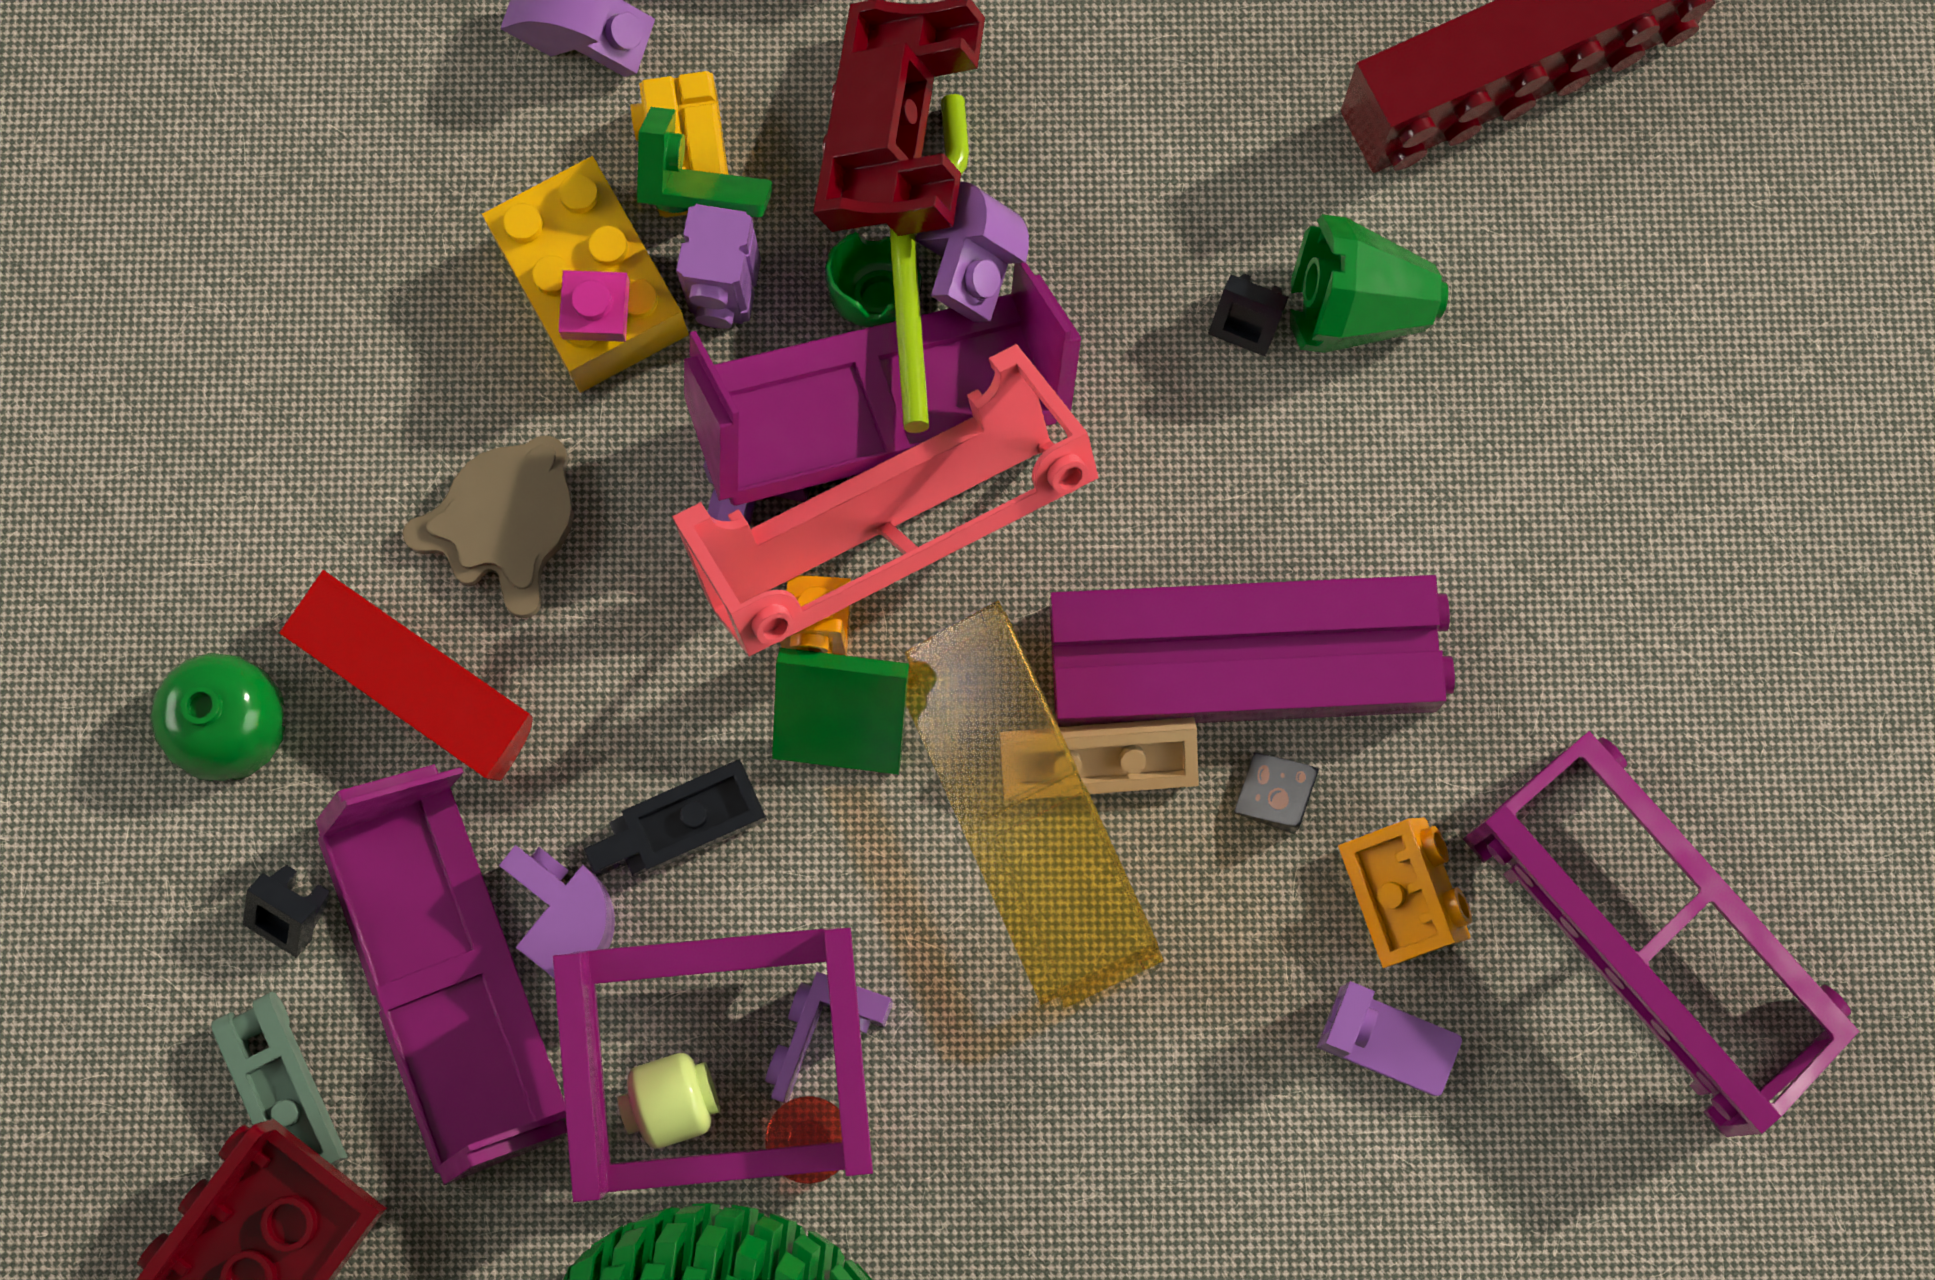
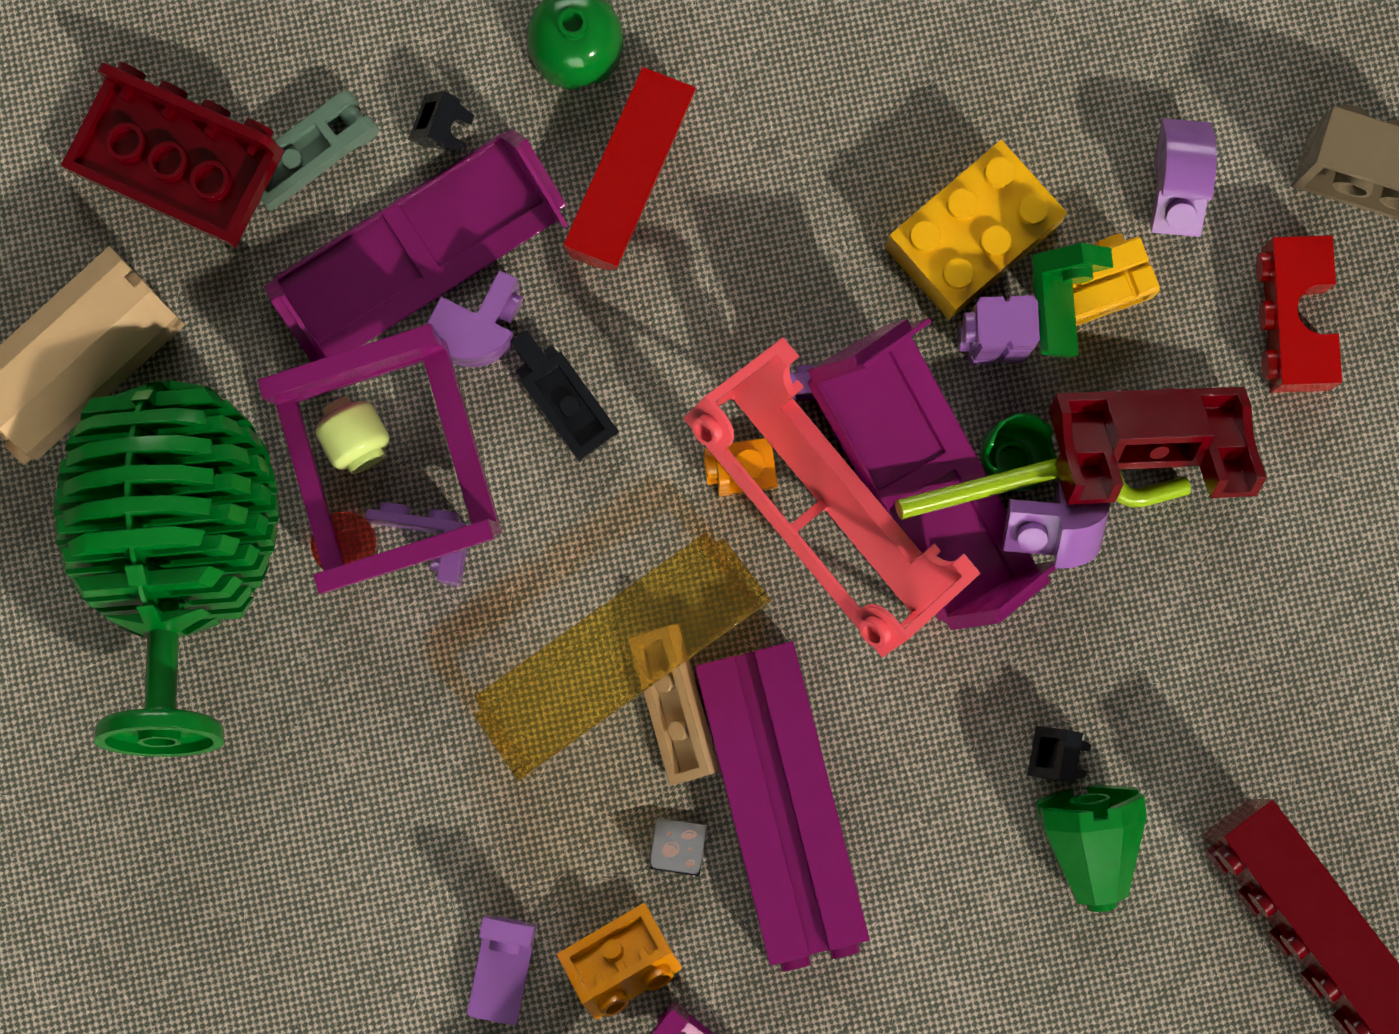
camera: 75 degrees right, 5 degrees up
(502, 518) = (772, 212): dark tan tile -> none
(594, 306) = (941, 241): dark pink plate -> none
(839, 710) = (668, 498): green tile -> none

